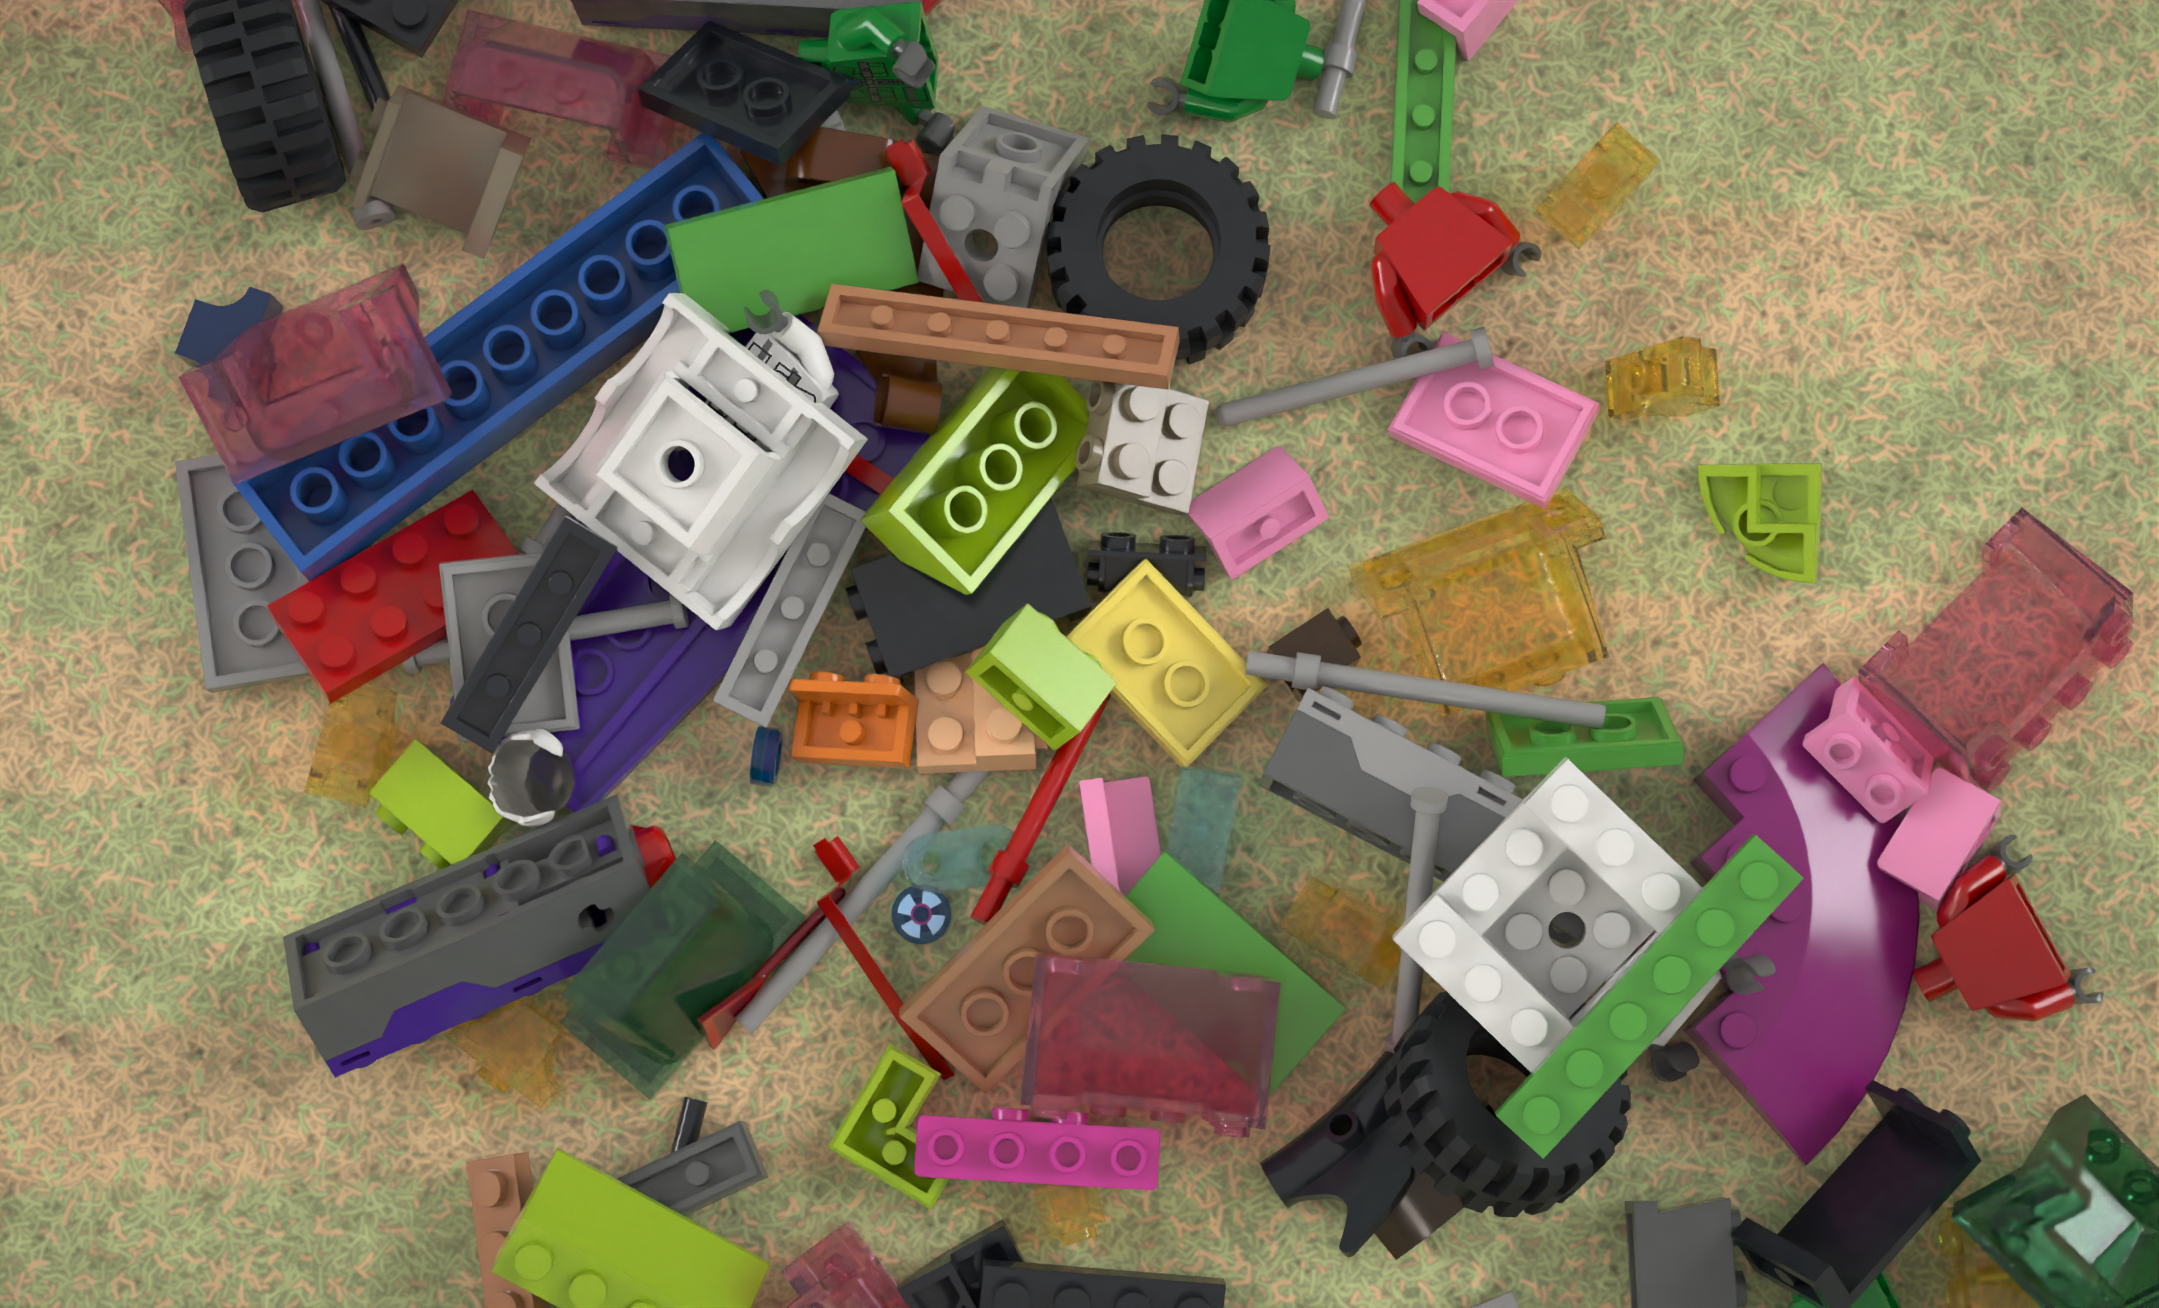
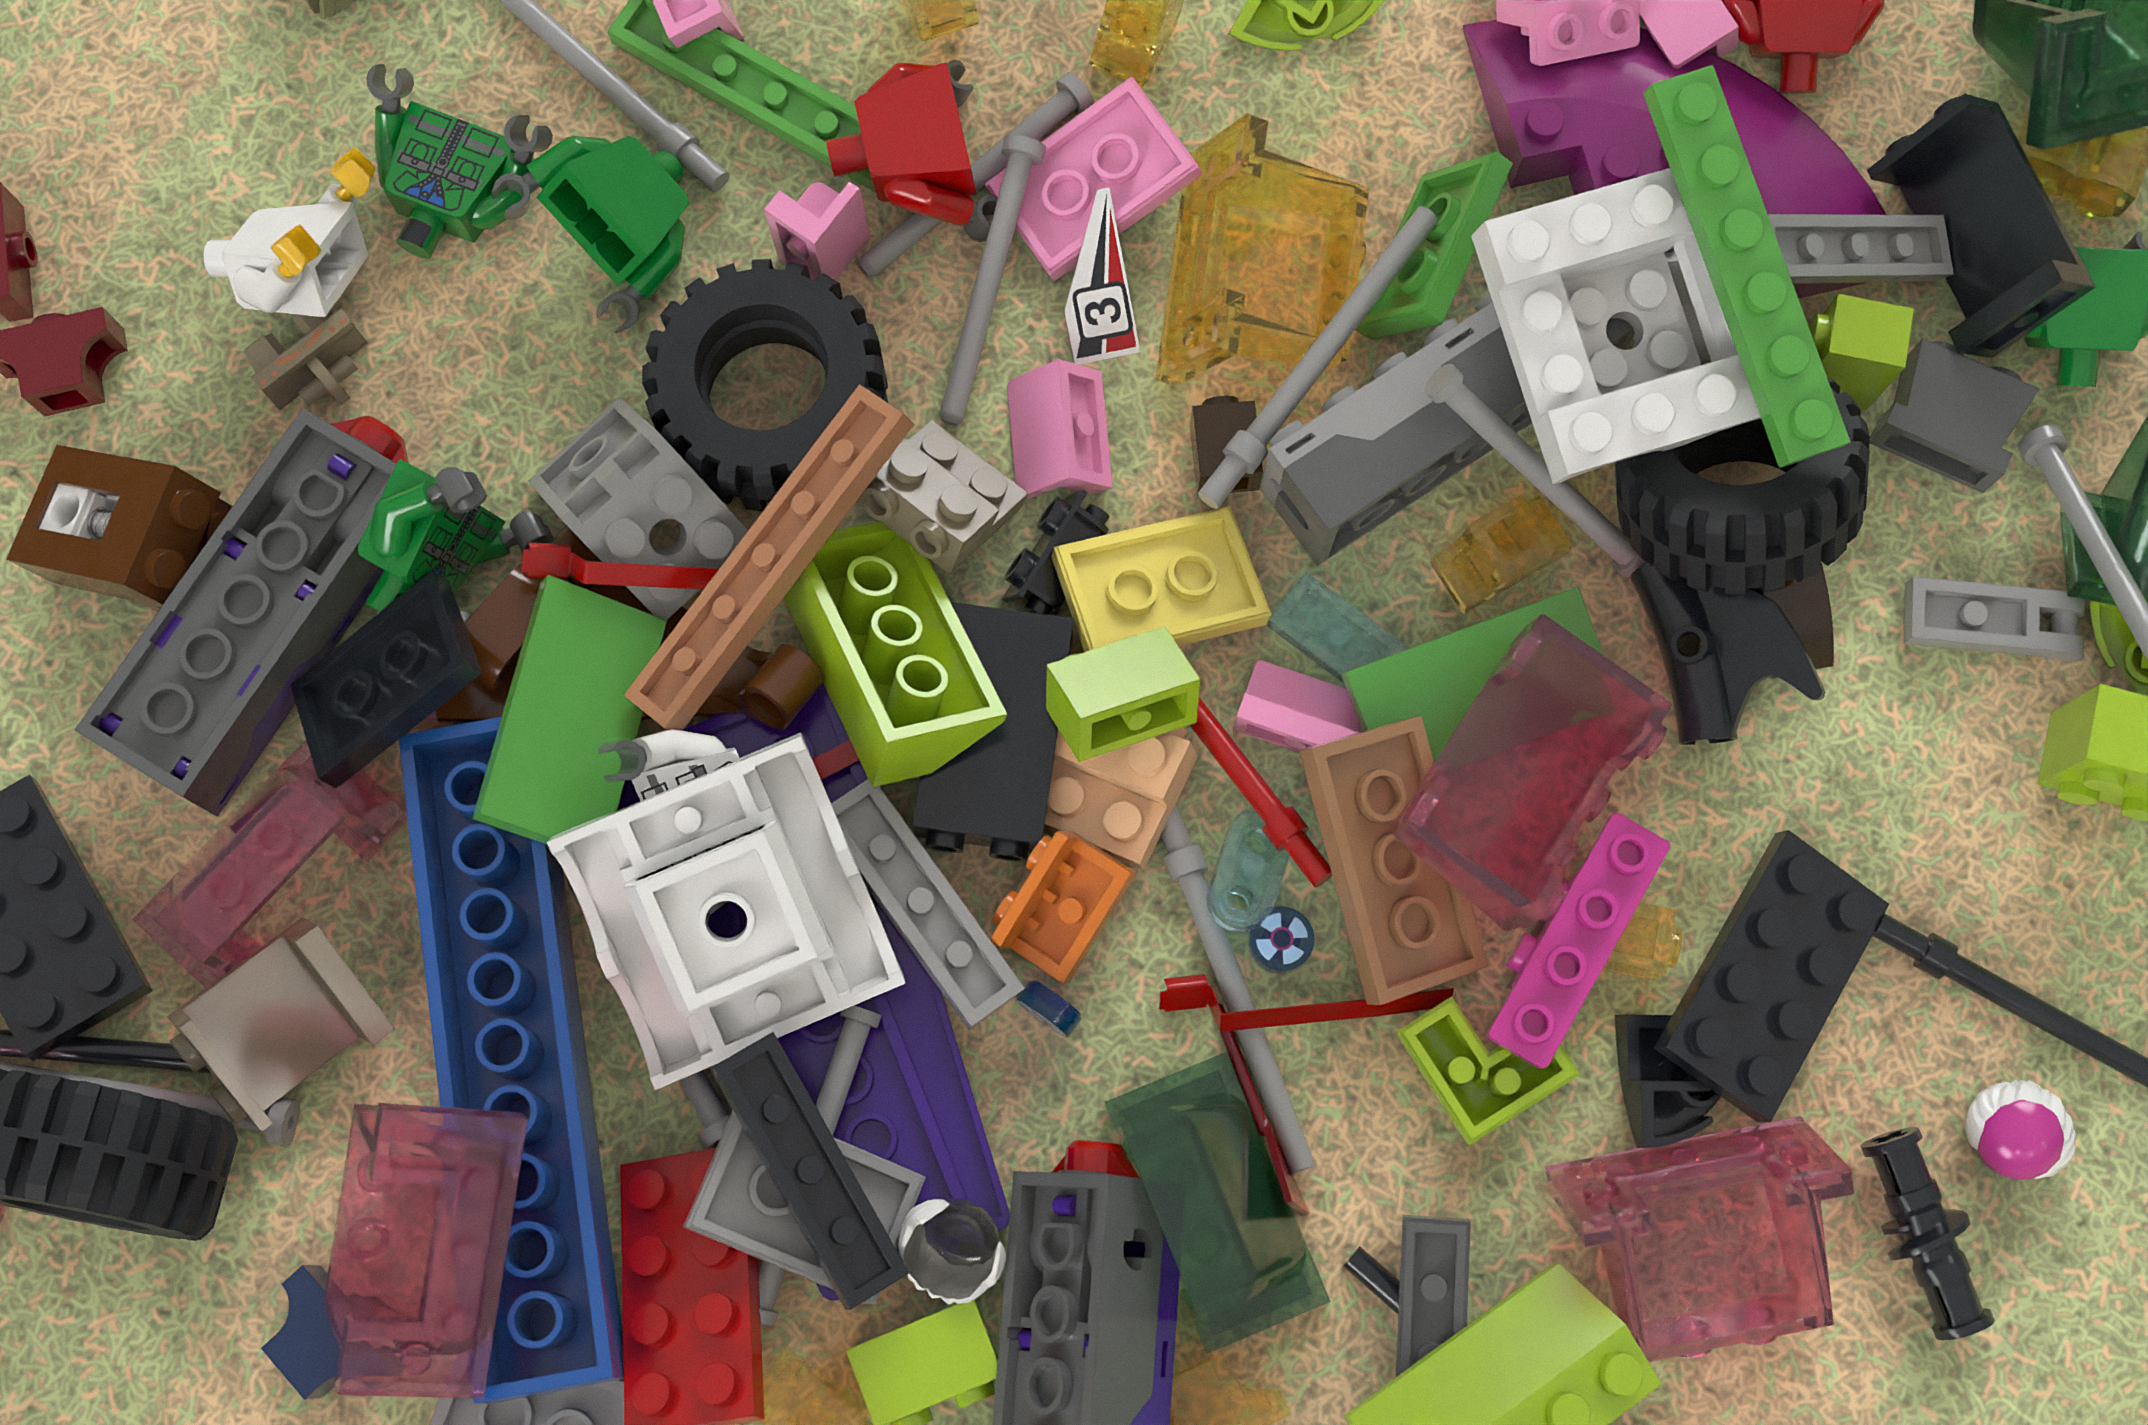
camera: 65 degrees left, 5 degrees down
(1317, 219) = (819, 229): none -> bright pink panel
(1391, 481) = (1099, 299): none -> sticker
(1460, 325) = (1071, 96): none -> light grey bar
(1681, 1140) = (1862, 345): none -> lime brick
(1771, 1094) = (1863, 247): none -> light grey plate

